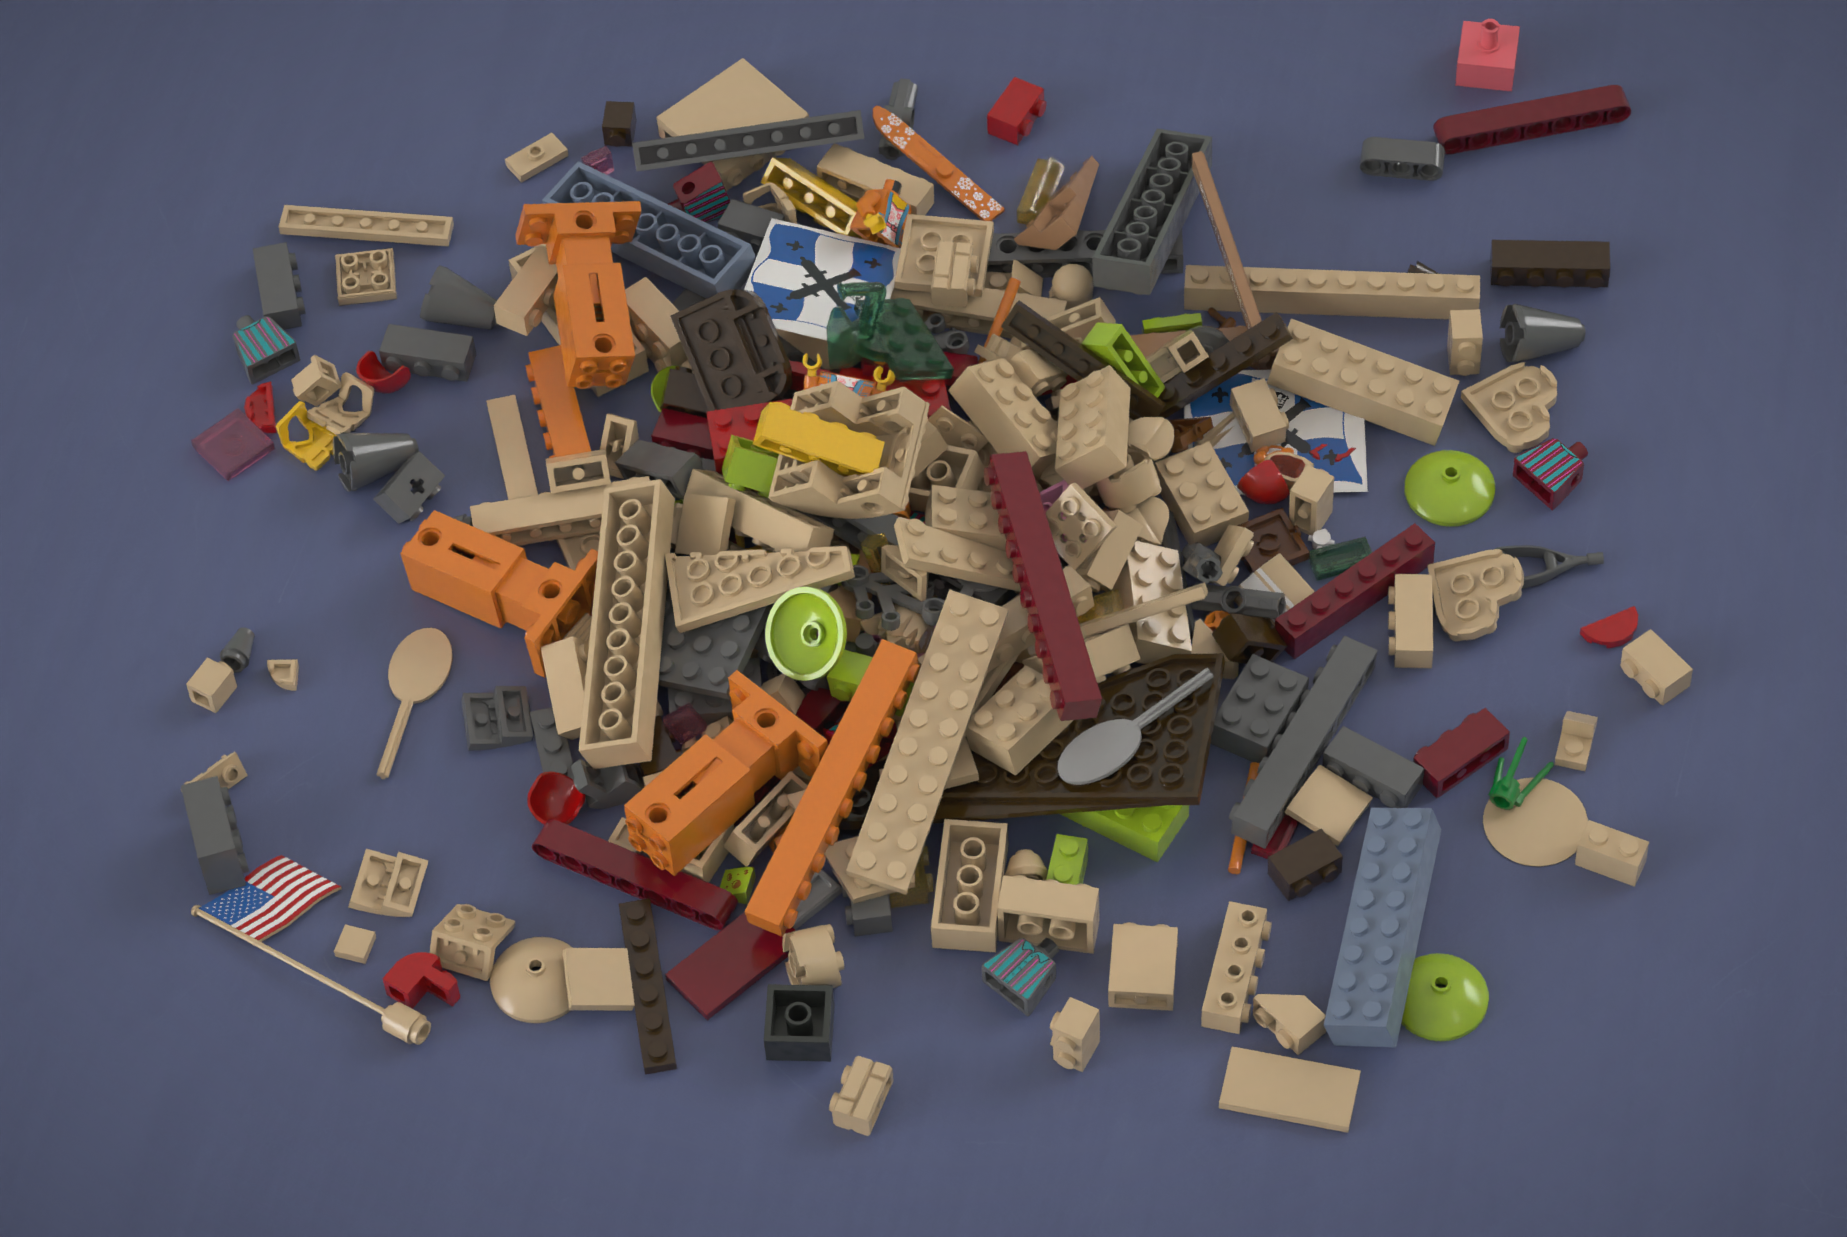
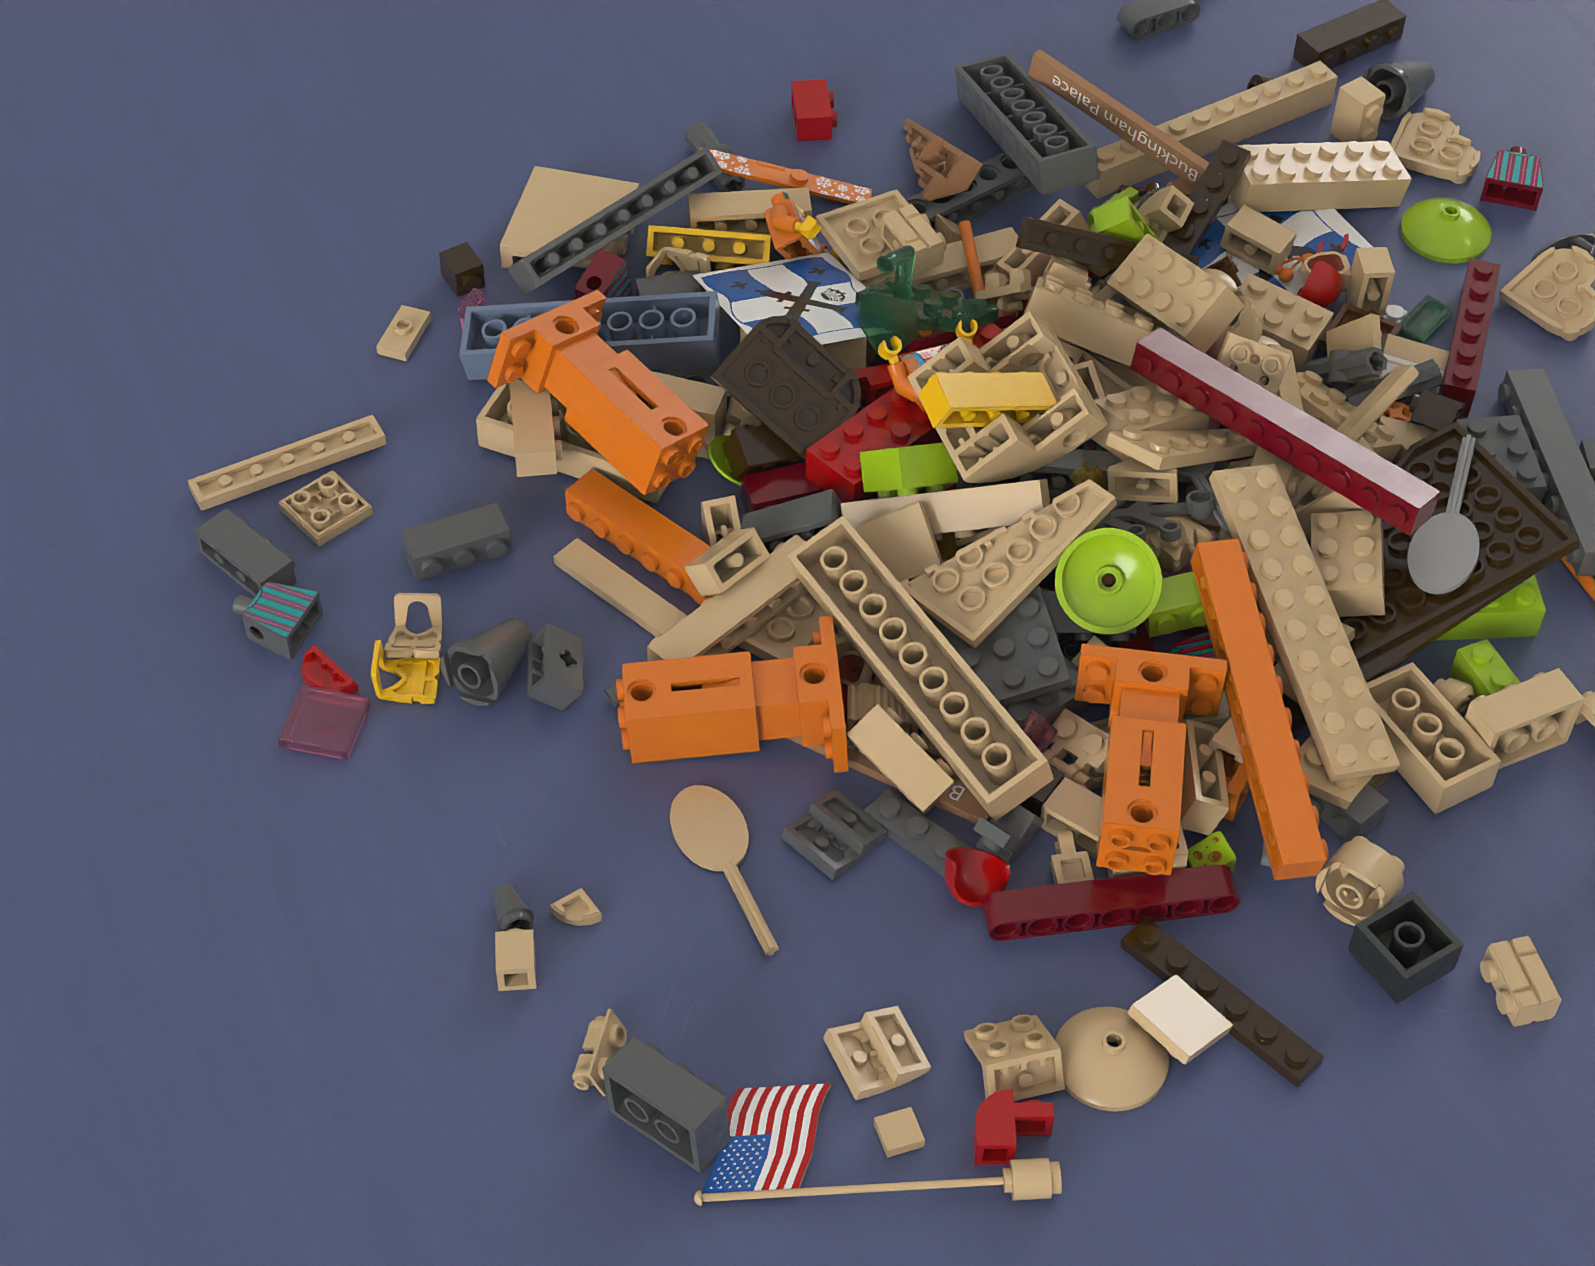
camera: 40 degrees left, 5 degrees down
(316, 381) = (368, 619): tan brick -> none
(374, 374) = (443, 588): red helmet -> none
(457, 302) = (451, 481): dark grey cone -> none
(727, 965) = (1274, 932): dark red tile -> none
(1022, 973) = (1541, 790): dark grey torso -> none
(1039, 188) = (892, 161): clear yellow piece -> none
(1072, 284) = (1001, 212): tan helmet -> none
(1411, 621) = (1535, 336): tan brick -> none

